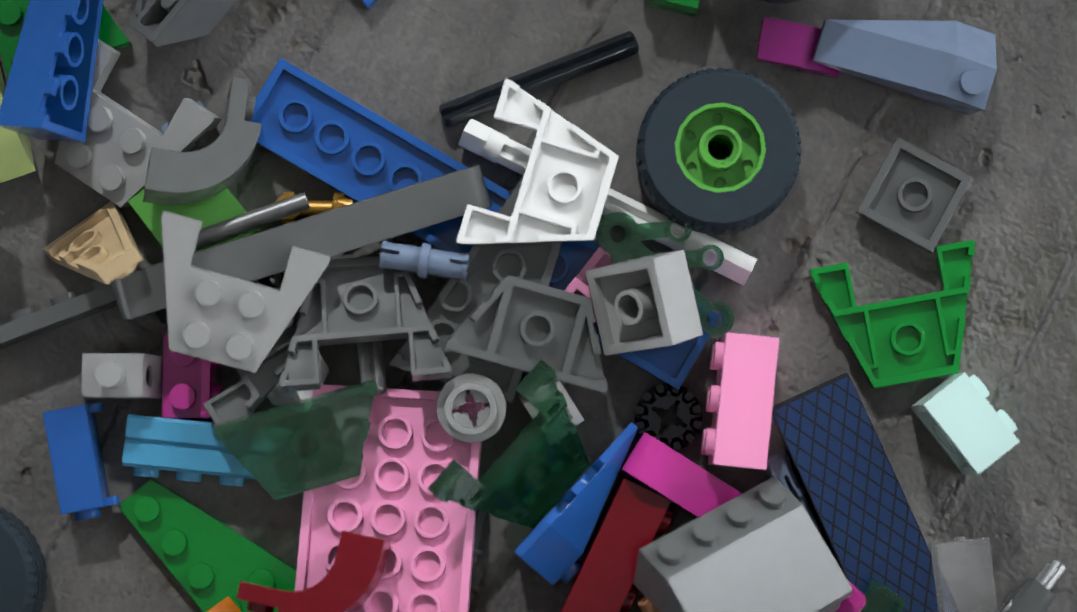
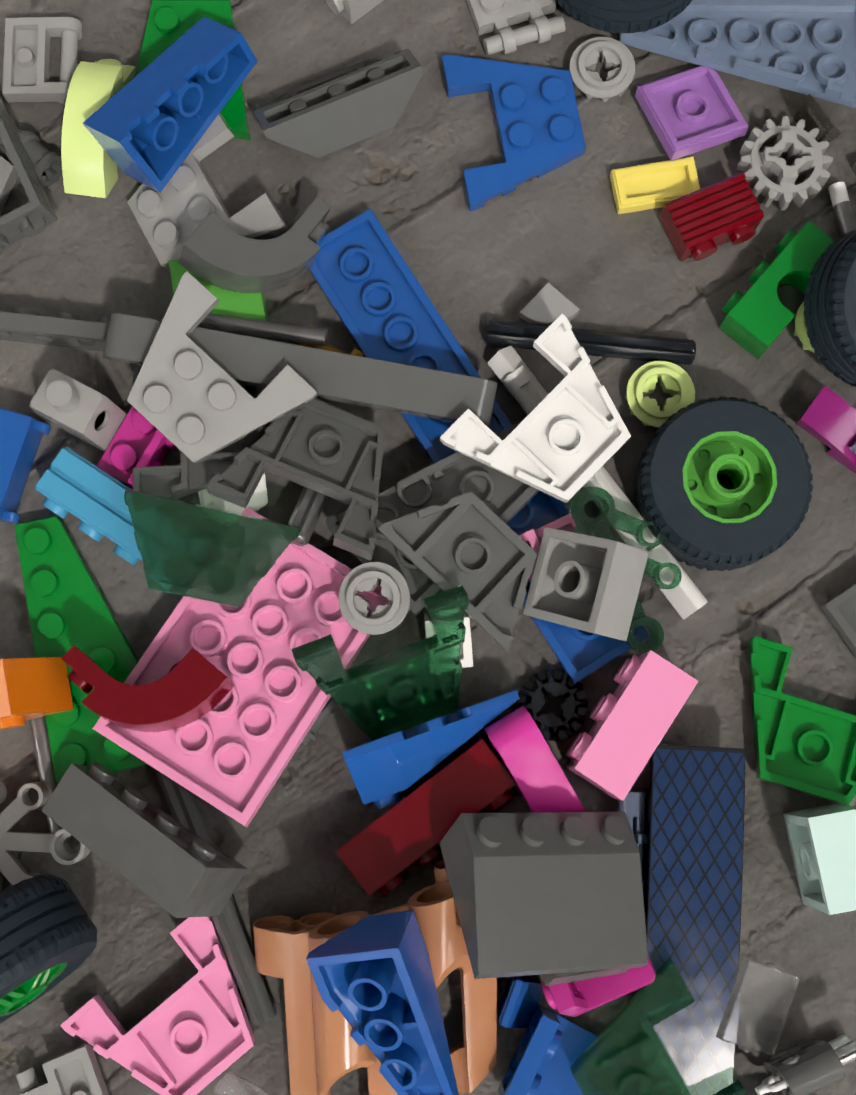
camera: 30 degrees right, 5 degrees down
(97, 246) = (121, 286): tan wing -> none
(424, 260) = (402, 442): sand blue pin -> none
(487, 66) = (547, 307): none -> light grey tile
(605, 89) = (644, 381): none -> yellowish green gear

